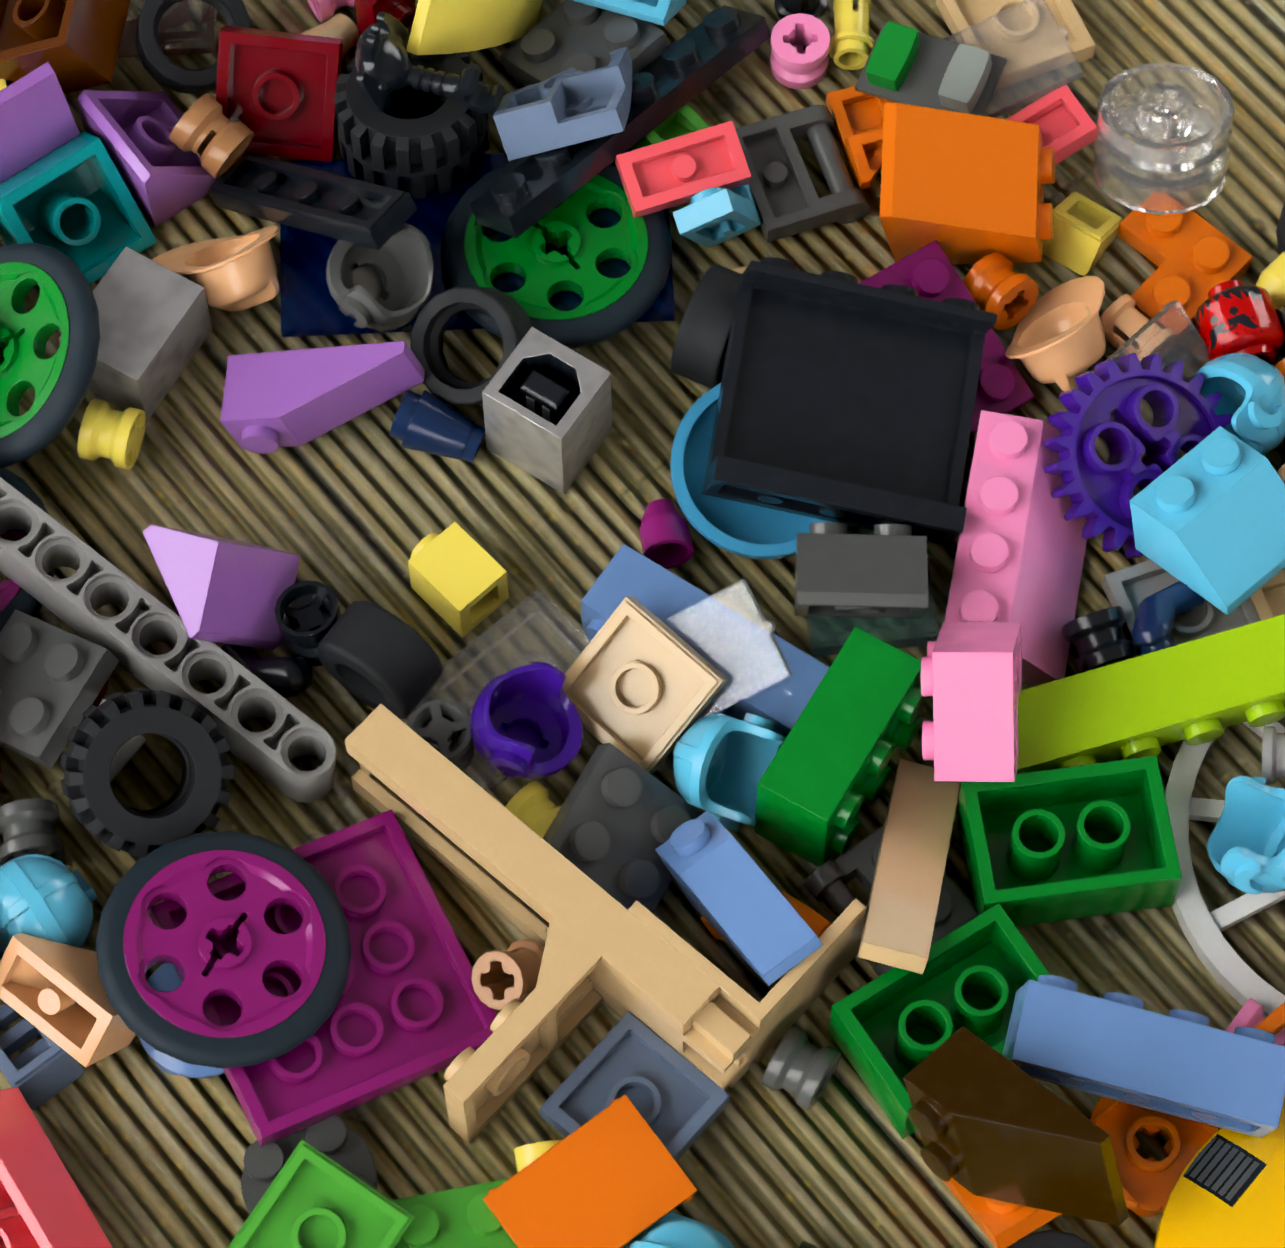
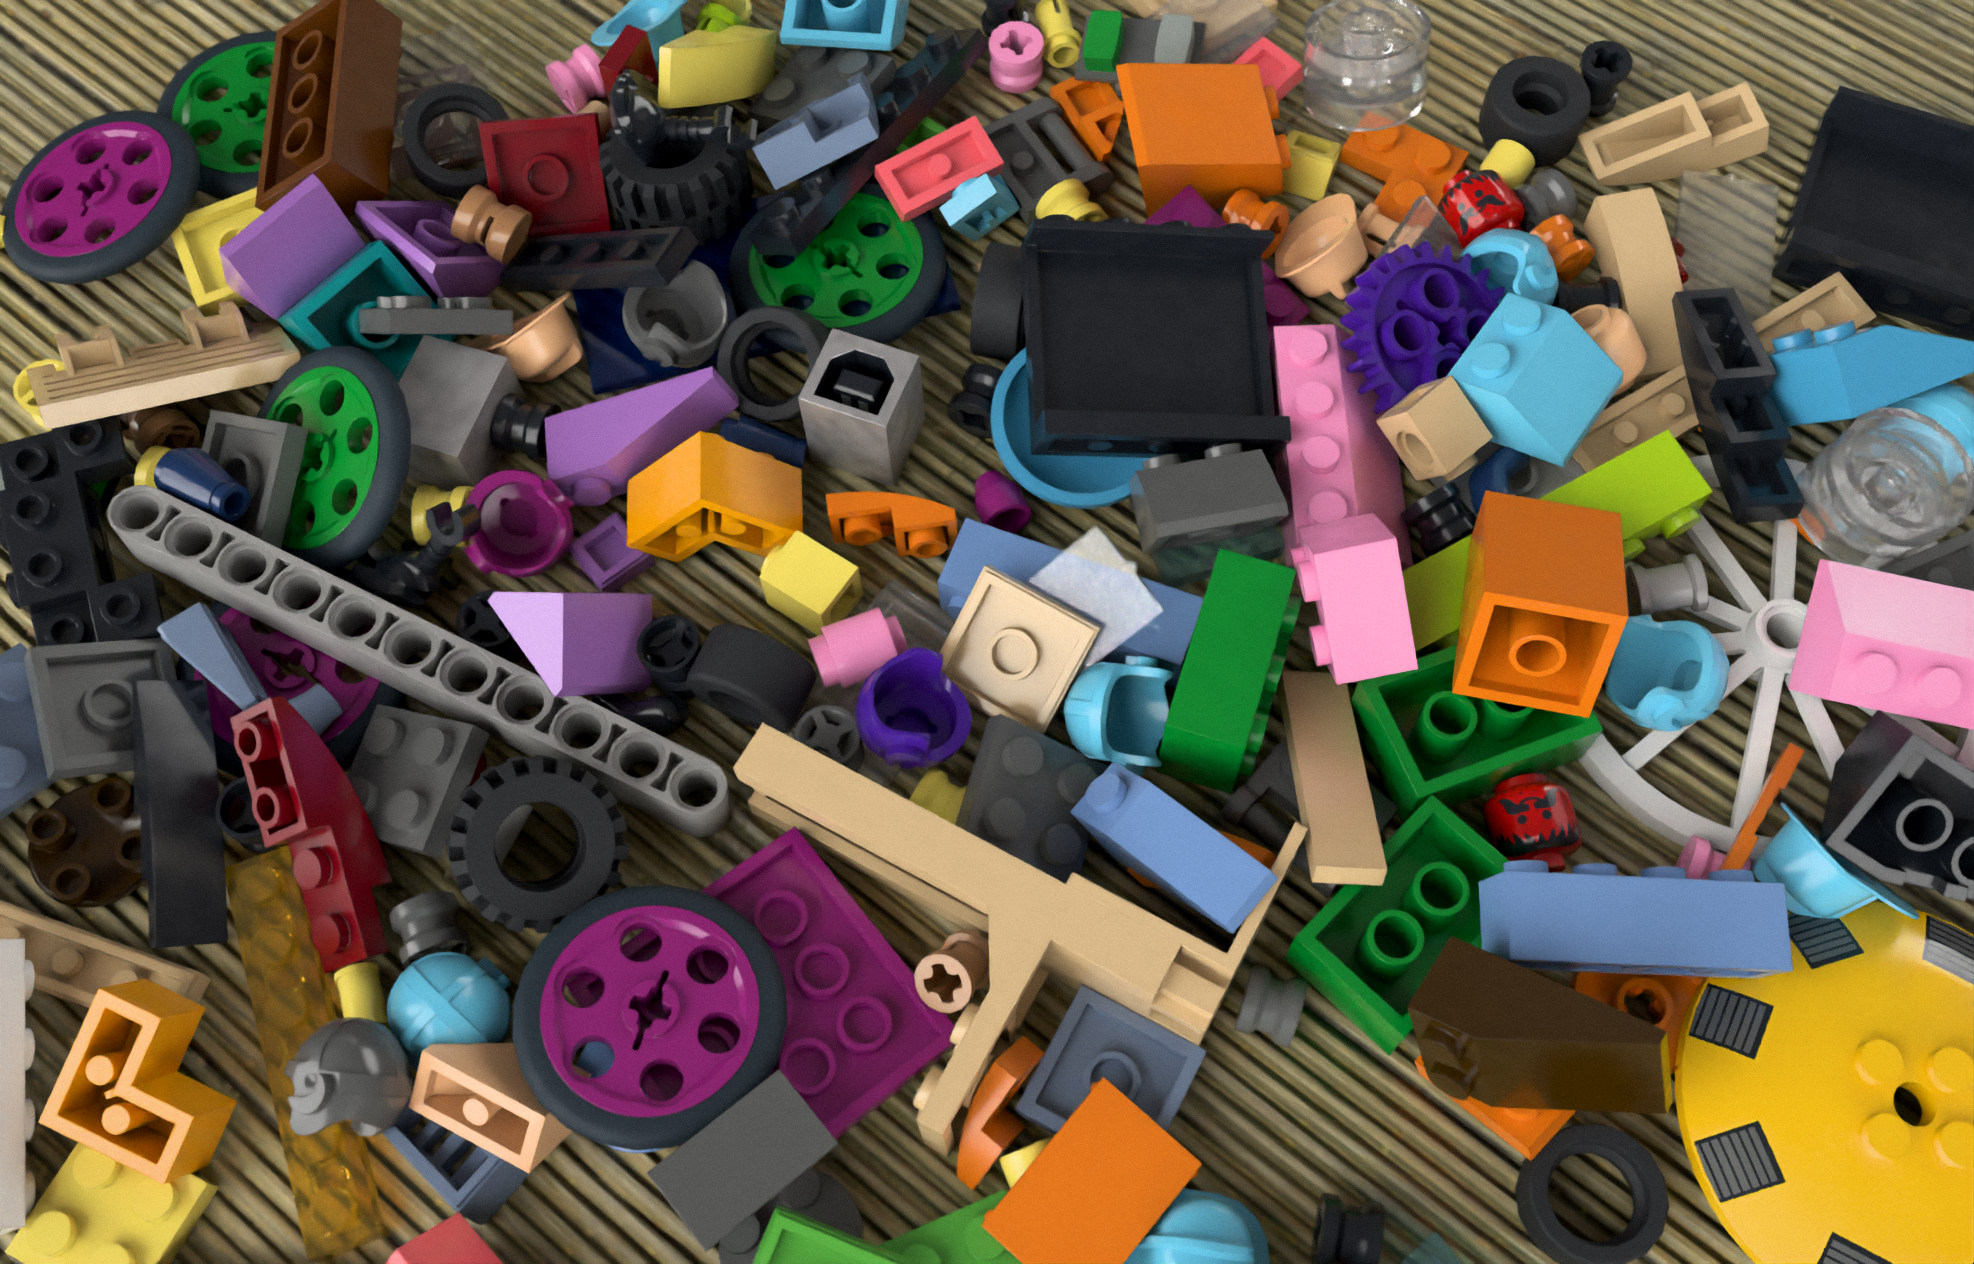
camera: 10 degrees left, 0 degrees up
(74, 483) = (419, 569): none -> black piece
(128, 545) = (479, 620): none -> black wheel
(154, 233) = (453, 316): none -> dark grey plate
(182, 458) = (522, 524): none -> magenta cap
(204, 357) = (522, 426): none -> black wheel
(266, 506) = (605, 556): none -> medium lavender tile
(281, 1090) = (742, 1160): none -> dark grey piece
(381, 470) = (712, 494): none -> light orange brick
(487, 649) = (856, 647): none -> bright pink brick
(511, 1115) = (988, 1125): none -> orange slope
(576, 540) = (919, 525): none -> orange slope
(659, 427) = (972, 406): none -> black wheel
(812, 240) = (1071, 199): none -> light yellow wheel
(1100, 951) = (1533, 821): none -> red head
(1111, 552) = (1435, 430): none -> tan brick
(1145, 742) = (1540, 604): none -> orange slope

